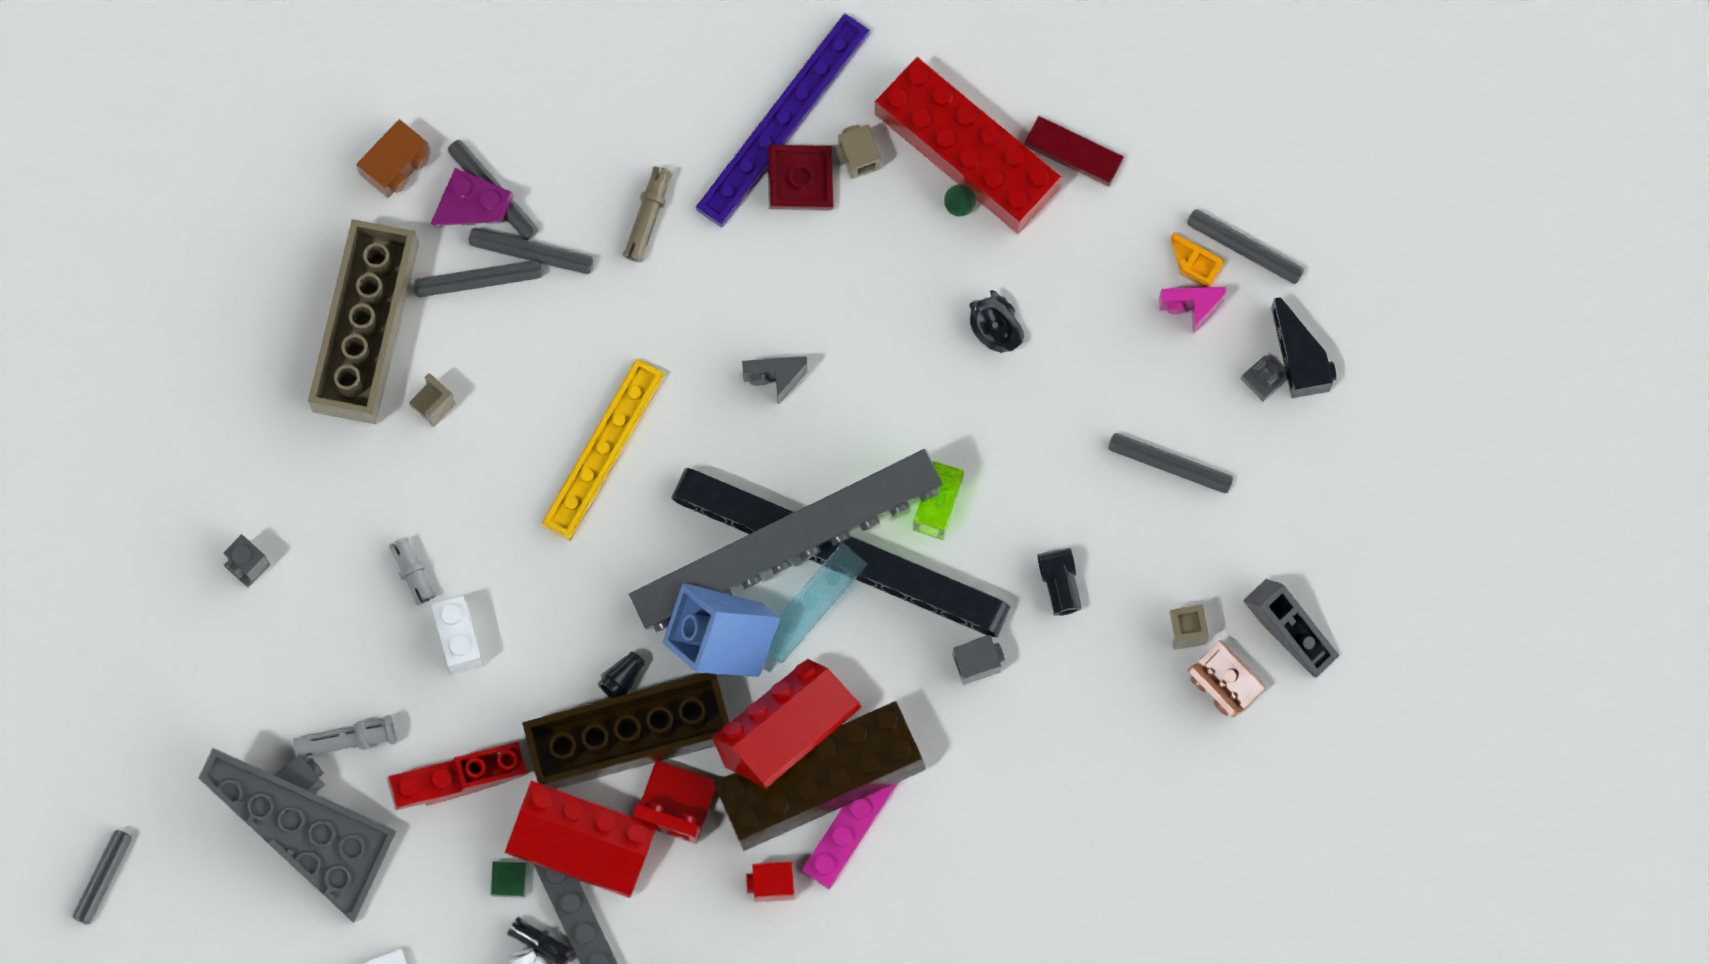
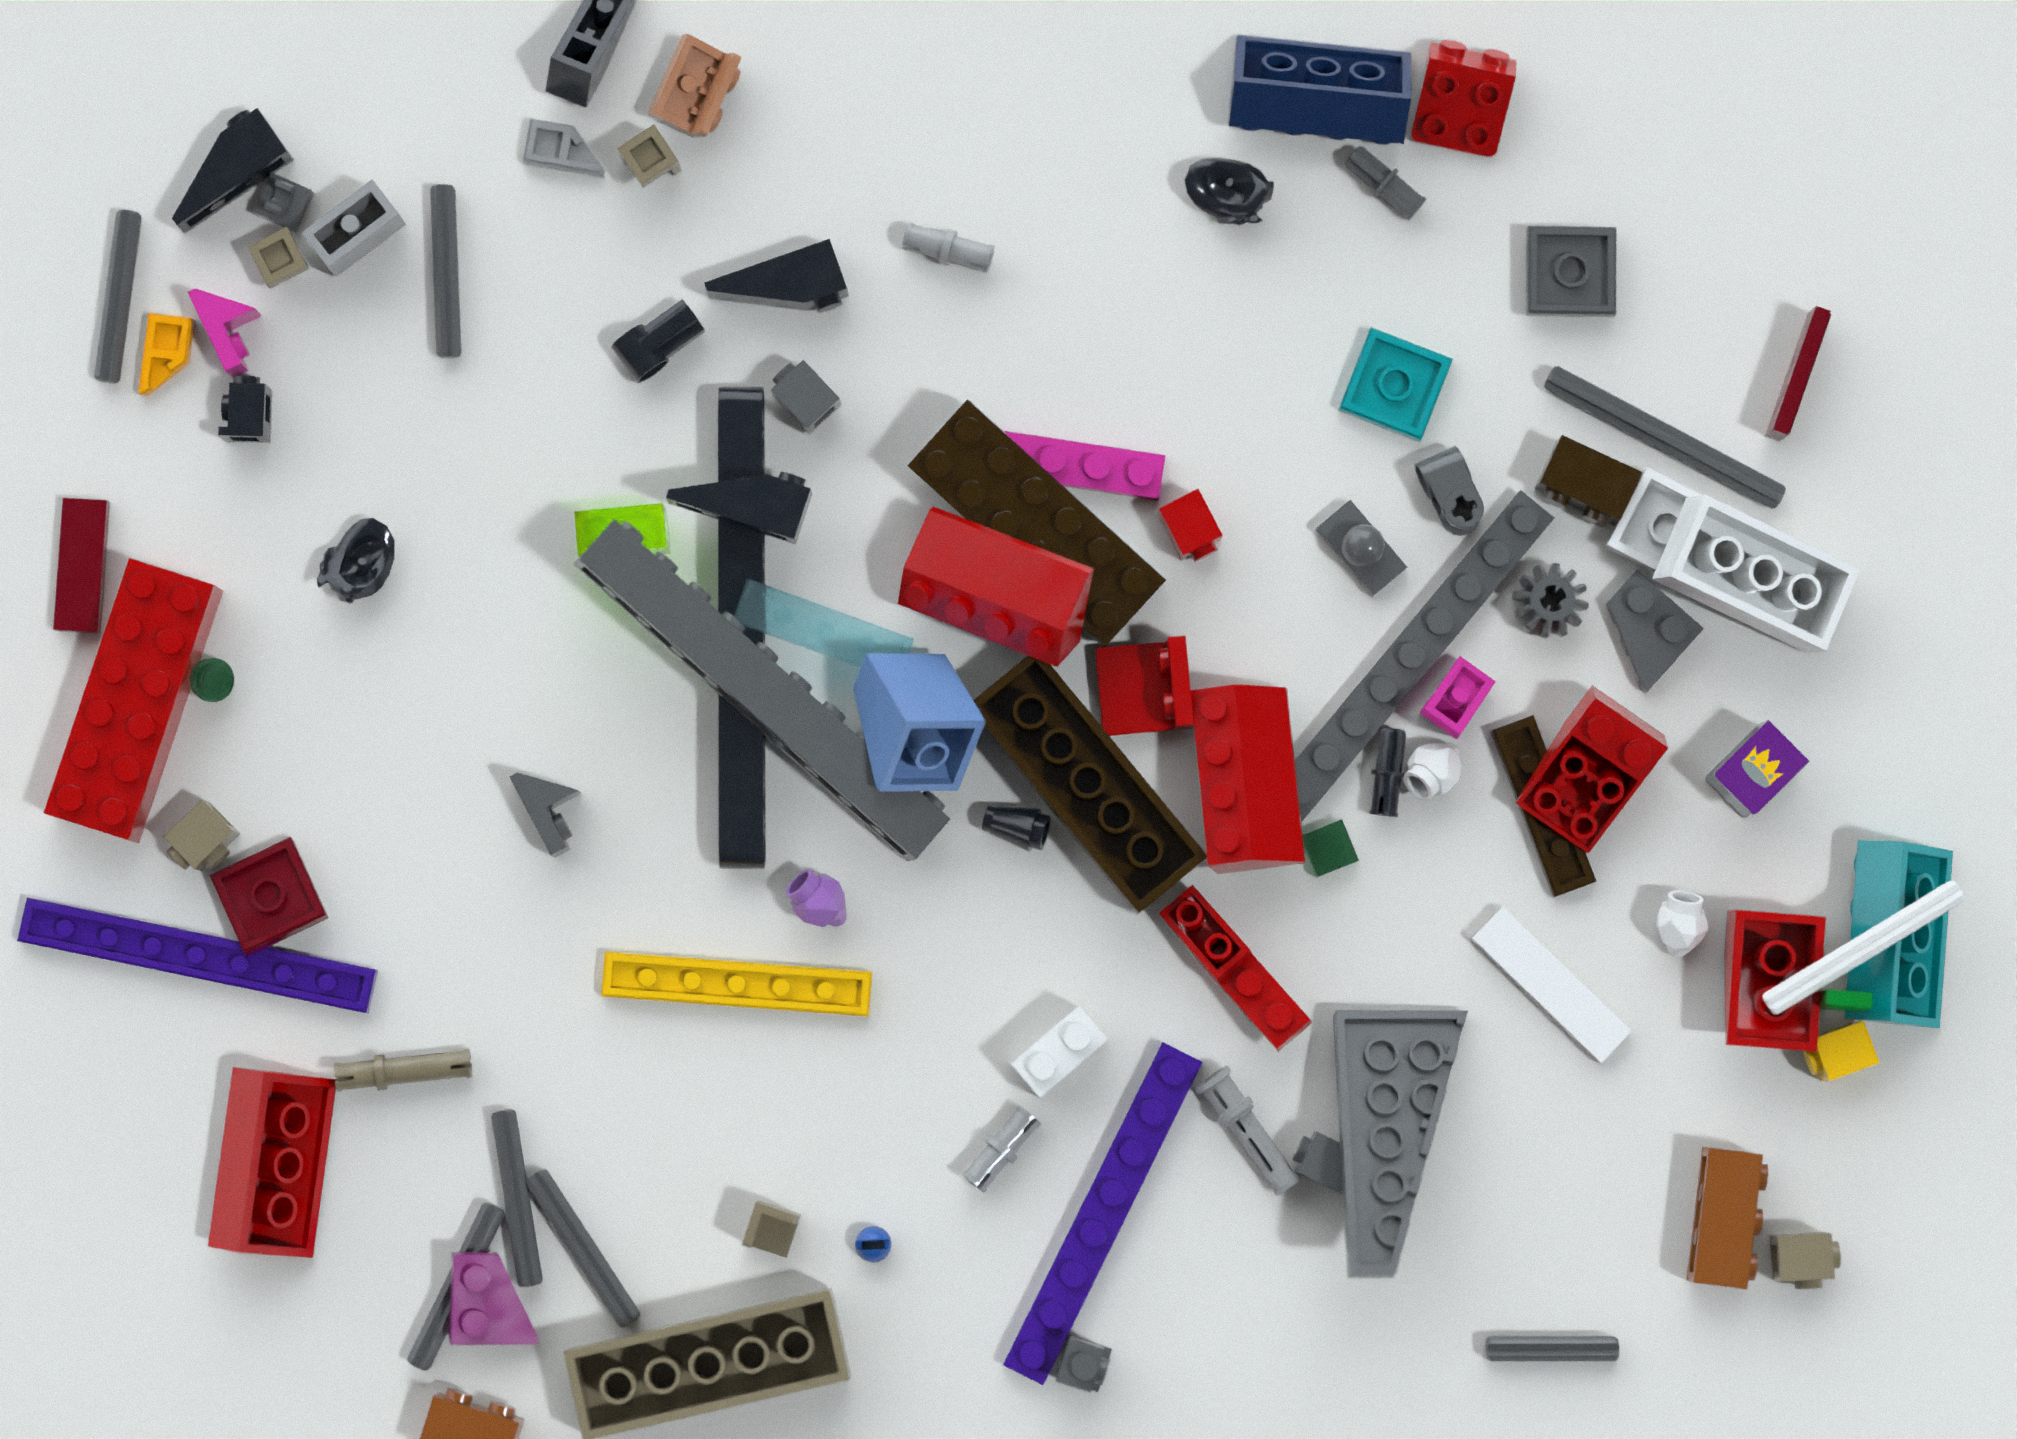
camera: 115 degrees left, 10 degrees up
(339, 620) = (1102, 1213): none -> dark purple plate
(397, 464) = (873, 1233): none -> blue hinge
(625, 108) = (272, 1163): none -> red slope
(633, 522) = (817, 899): none -> medium lavender rock
(913, 592) = (754, 503): none -> black slope
(1040, 803) = (948, 247): none -> light grey pin
(1061, 690) = (793, 281): none -> black slope
(1130, 295) = (247, 411): none -> black brick
(1223, 412) = (353, 228): none -> light grey brick
(1223, 574) = (559, 148): none -> light grey tile
(1225, 356) = (278, 257): none -> dark tan tile

